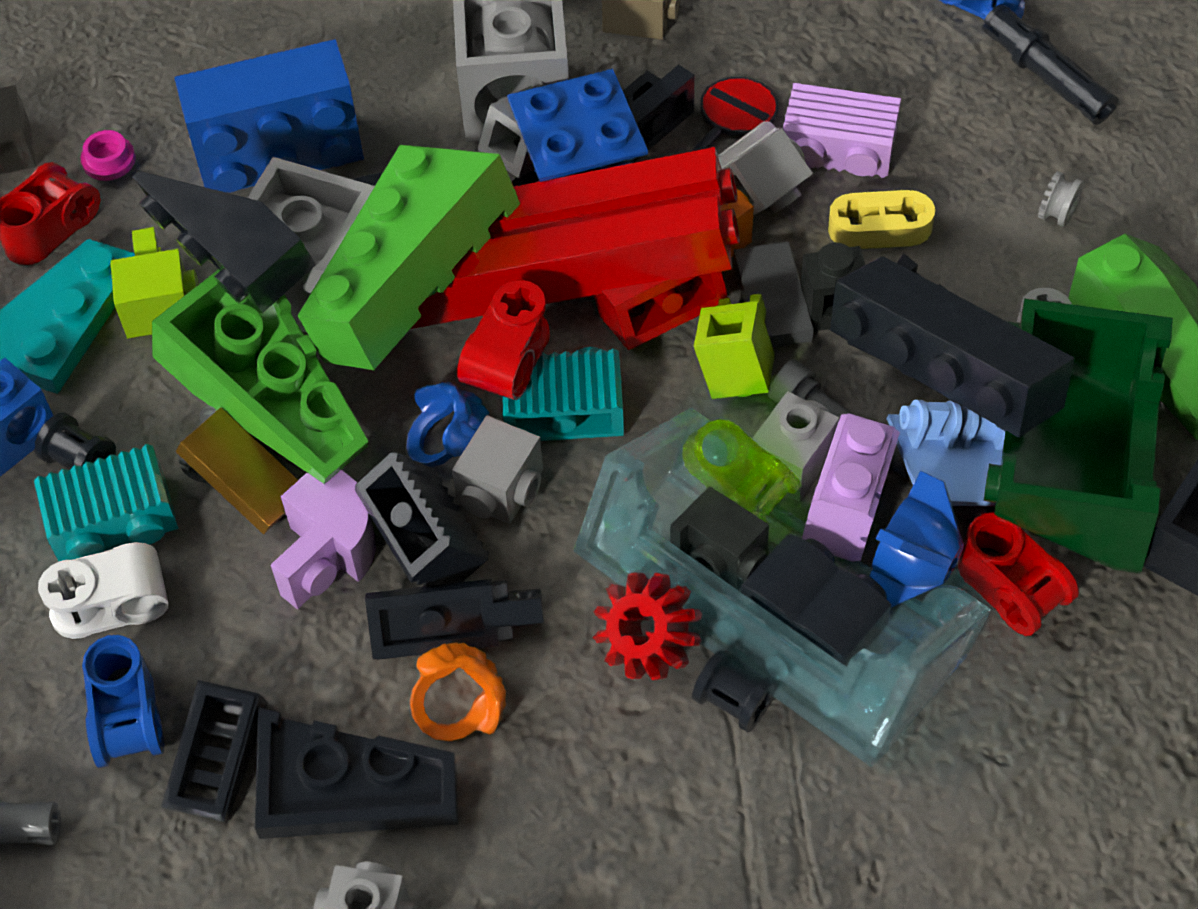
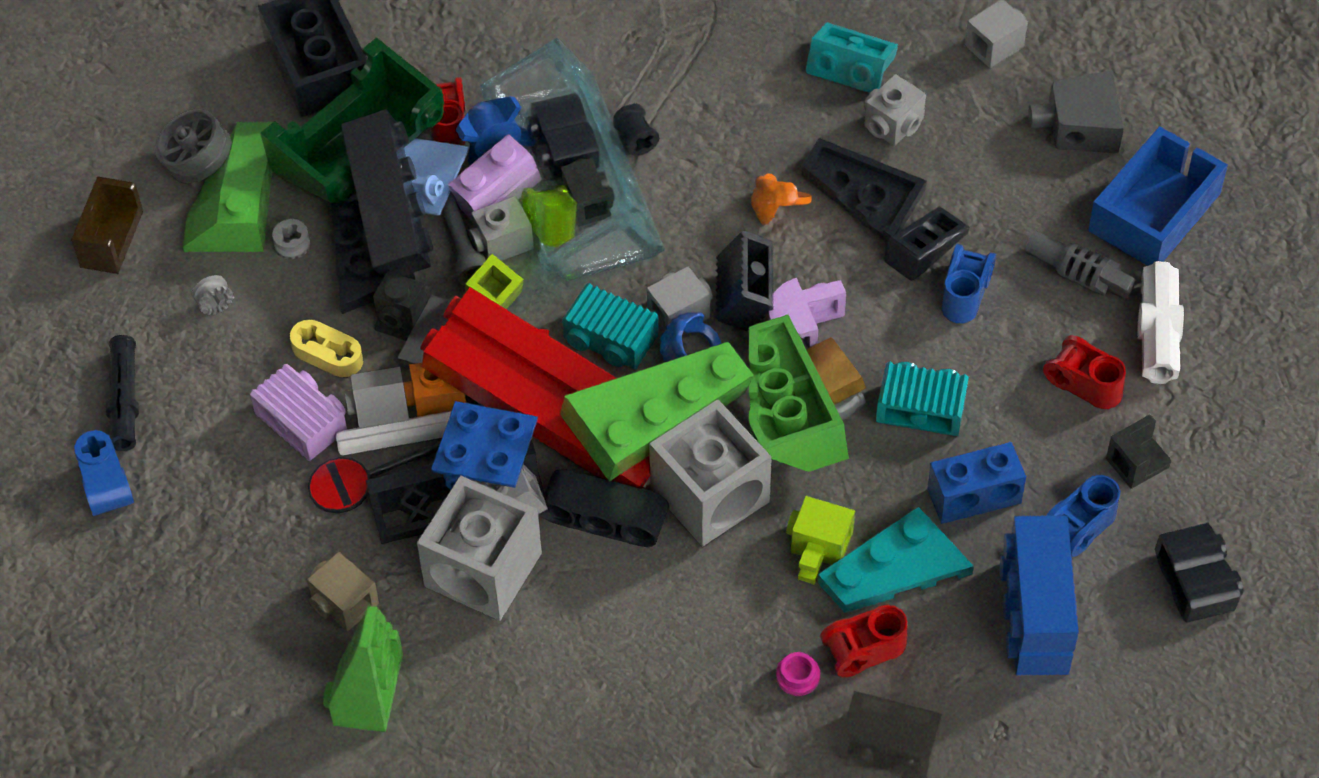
camera: 150 degrees left, 0 degrees up
(73, 445) = (917, 446): black bush -> none
(108, 590) = (945, 346): white piece -> none
(238, 234) = (764, 429): black slope -> none
(268, 107) = (672, 601): blue piece -> none
(462, 612) = (786, 248): black hinge -> none
(506, 341) = (634, 329): red piece -> none
(657, 648) = (659, 168): red gear -> none

